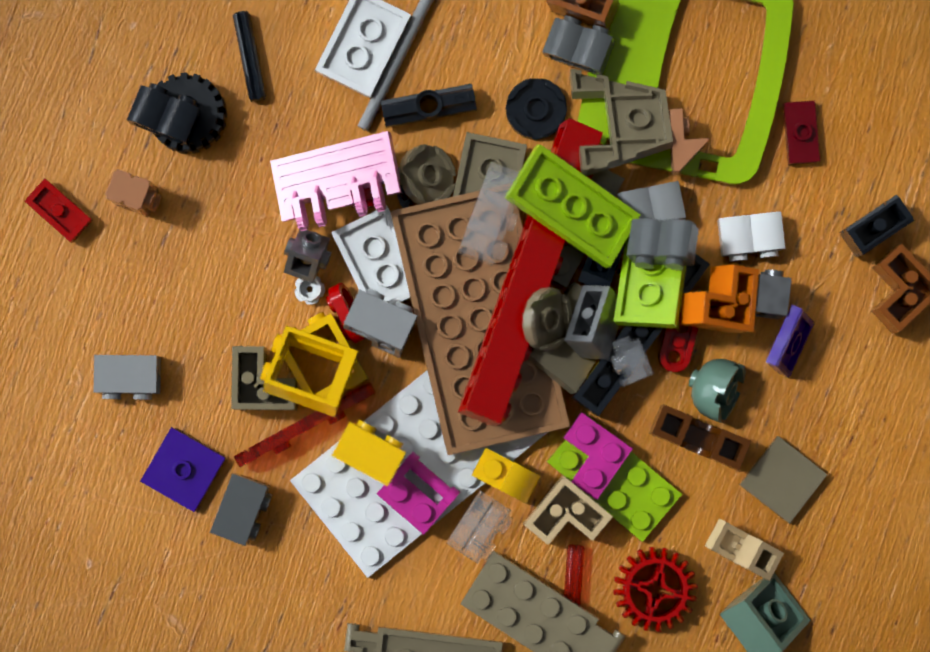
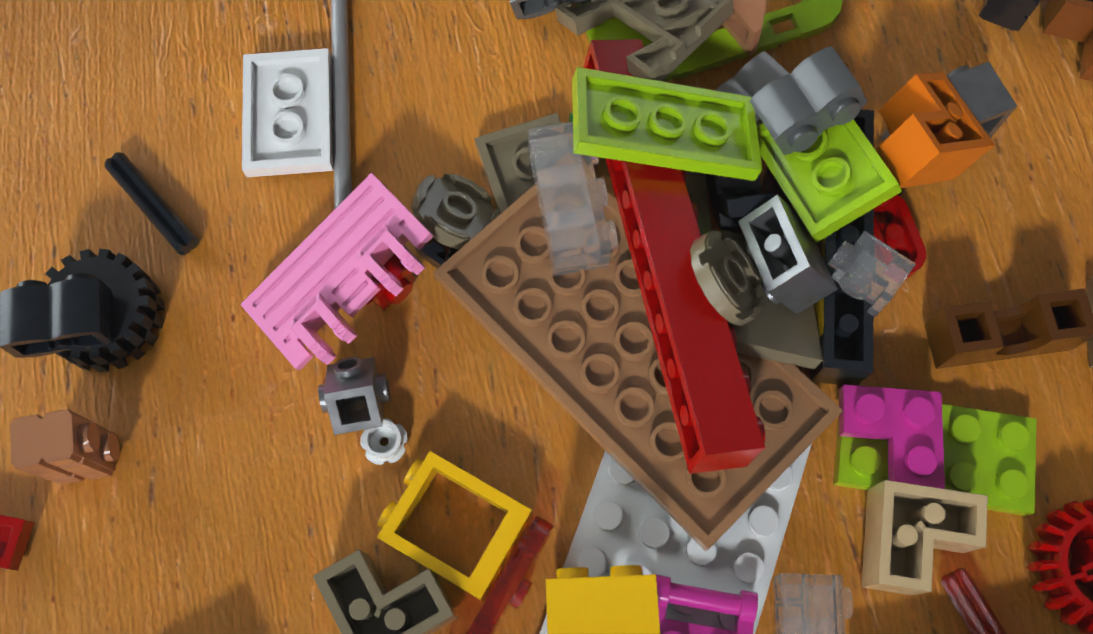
camera: 25 degrees left, 15 degrees down
(320, 347) = (433, 503): yellow window -> none
(340, 302) = (468, 452): red plate -> none
(374, 255) = (450, 354): white plate -> none
(381, 321) = (505, 419): light grey brick -> none
(449, 101) = (429, 118): black piece -> none
(506, 475) = (802, 530): yellow brick -> none
(536, 108) = (539, 75): black tile -> none
(715, 388) = (982, 257): sand green cylinder -> none
(751, 234) = (891, 62): white brick -> none
(790, 341) = (1029, 149): plate -> none

